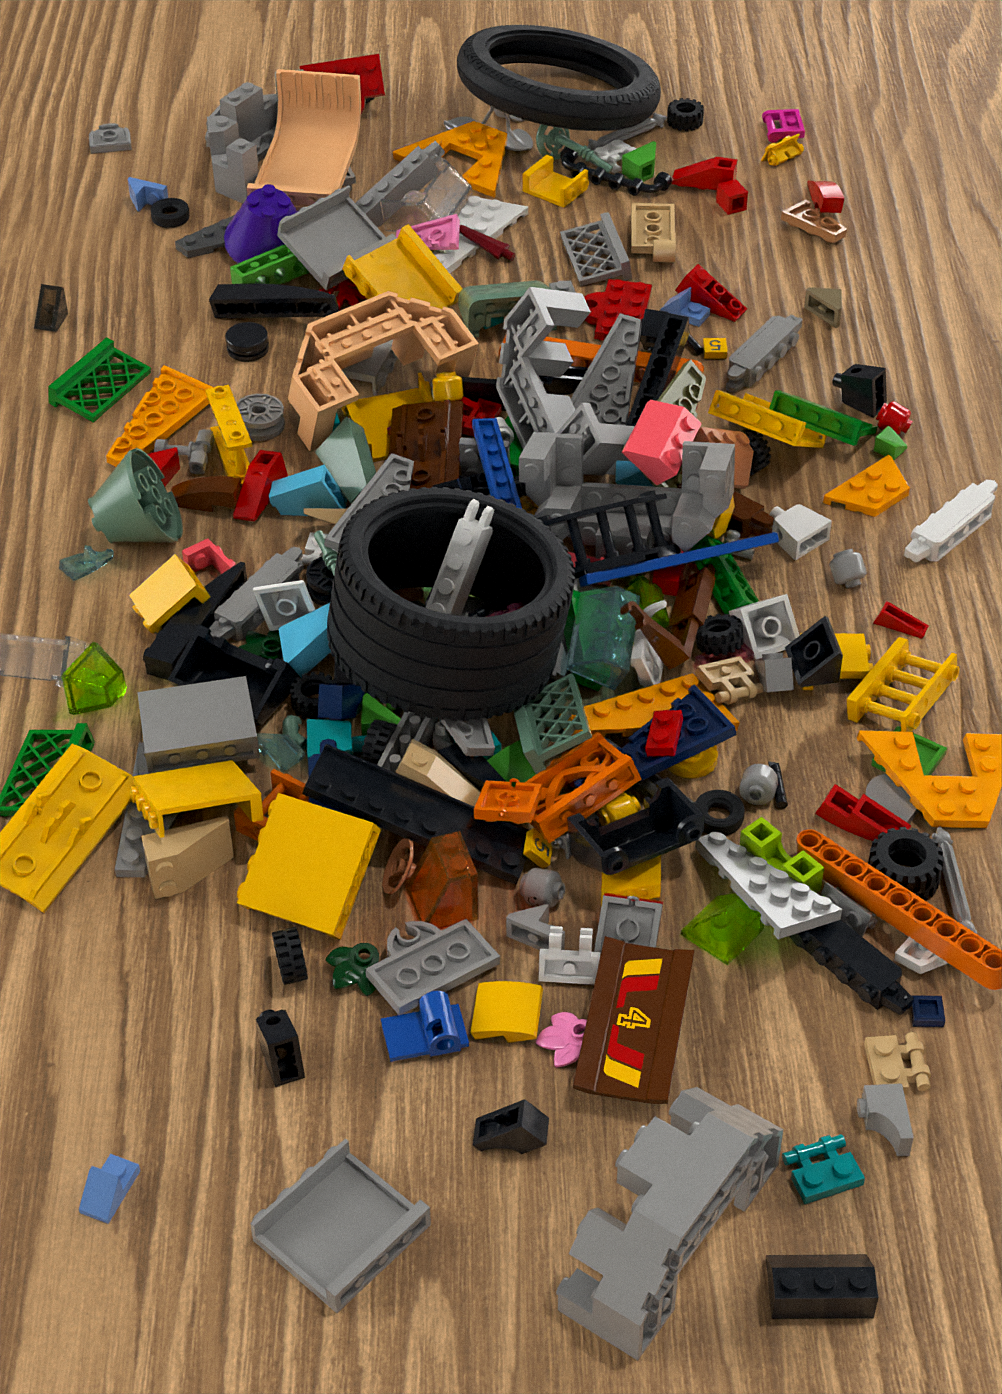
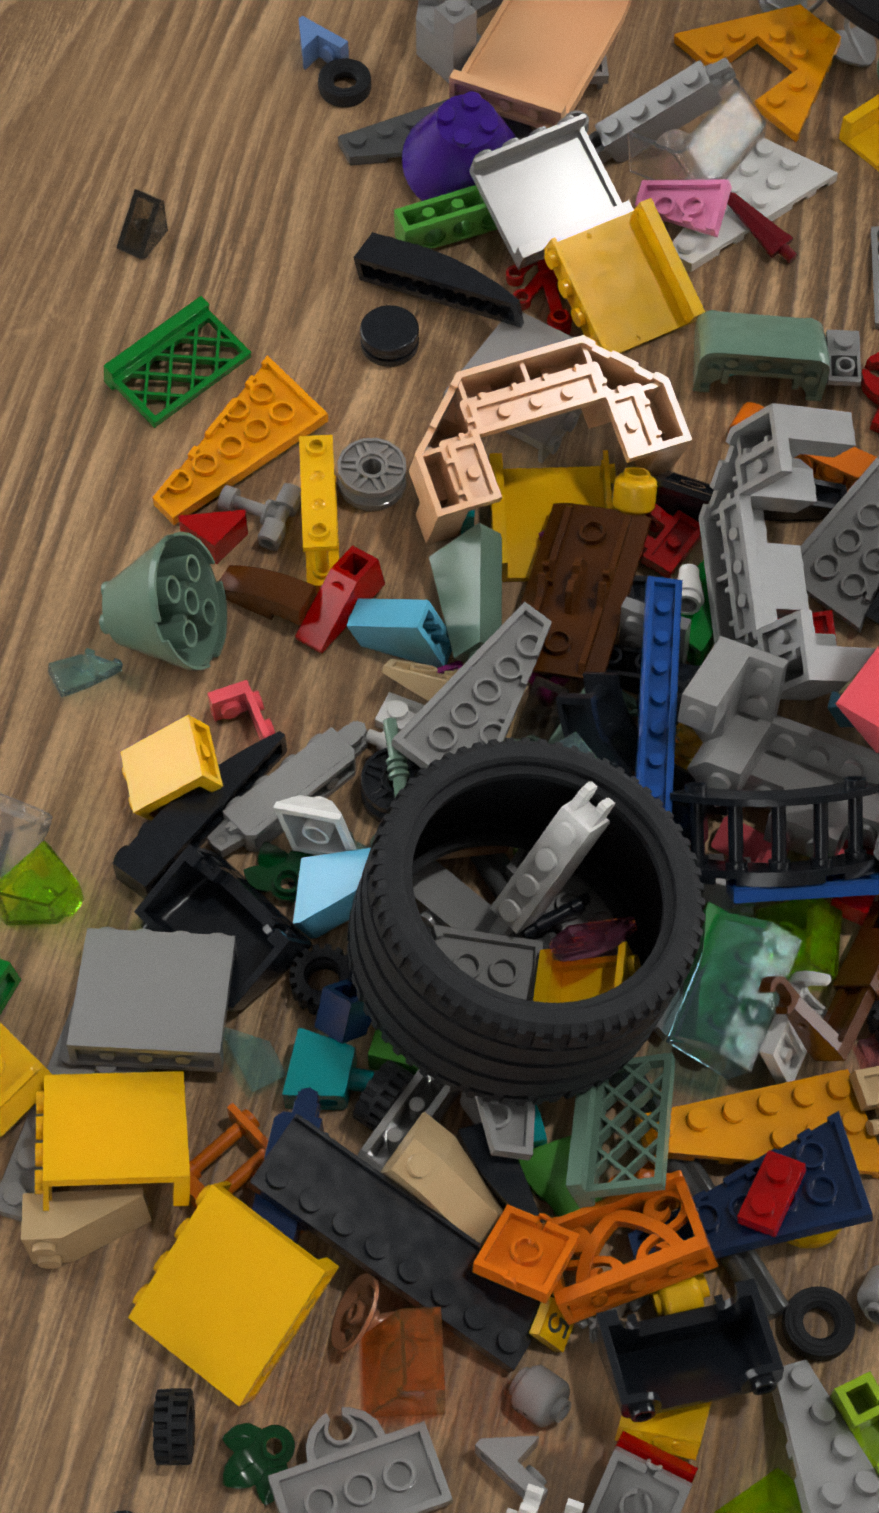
camera: 15 degrees right, 15 degrees up
(291, 728) = (276, 1031): sand green arm -> none

